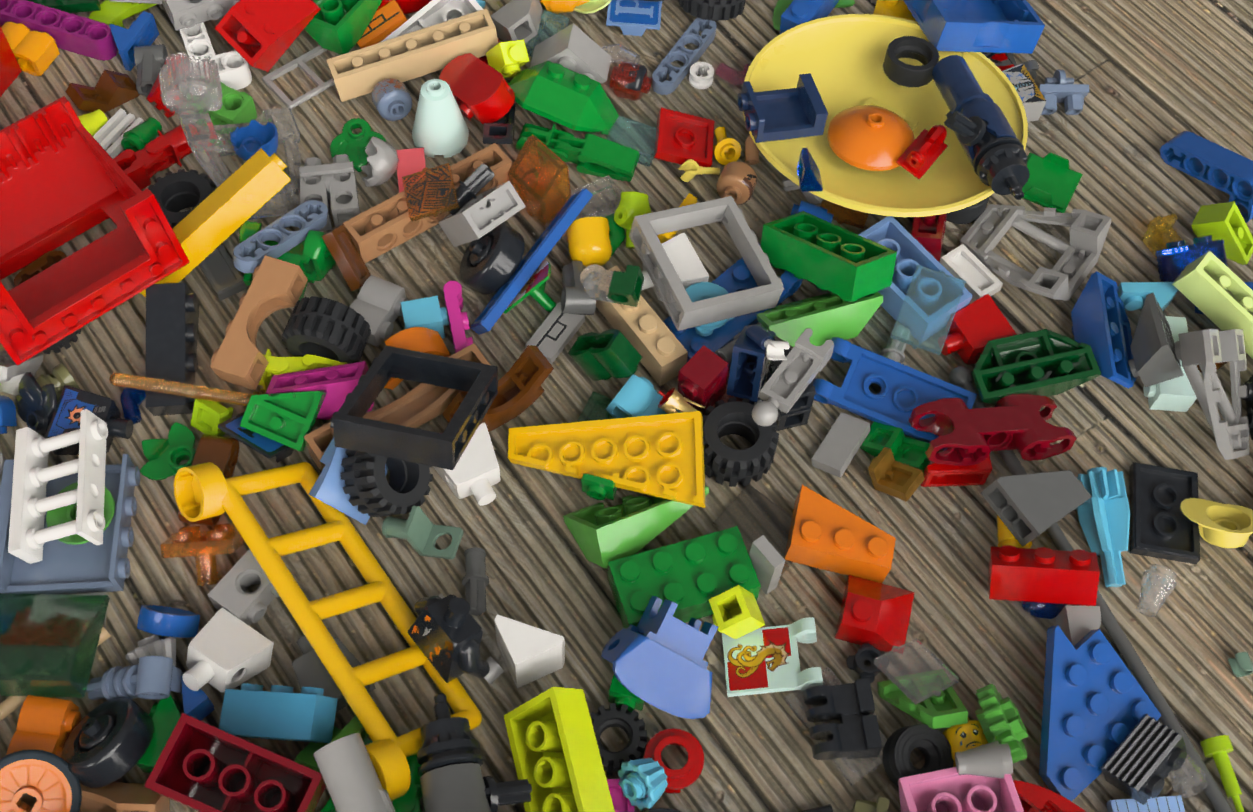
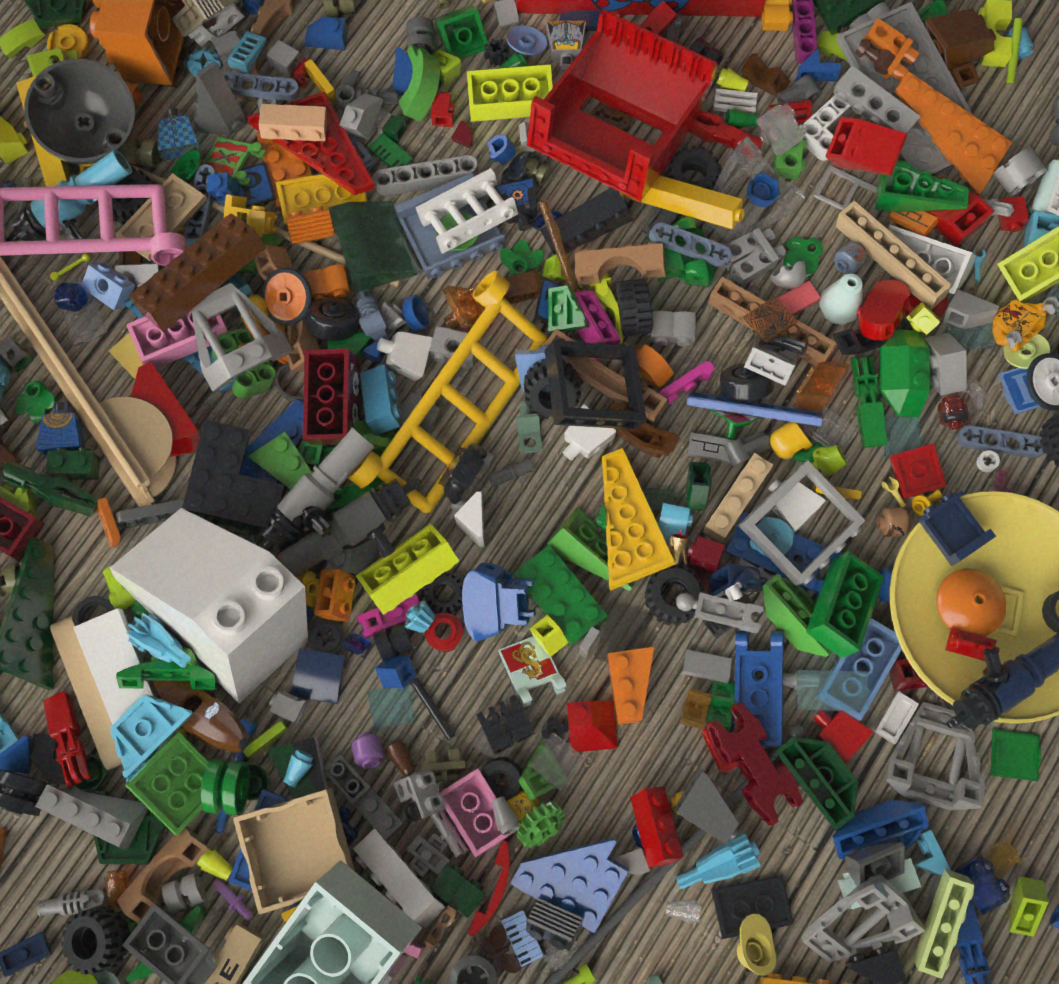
camera: 75 degrees right, 15 degrees up
(346, 257) = (700, 291): reddish brown tile -> none
(425, 313) = (680, 359): medium azure brick -> none
(613, 285) = (747, 462): leg -> none
(808, 173) = (902, 567): clear blue slope -> none

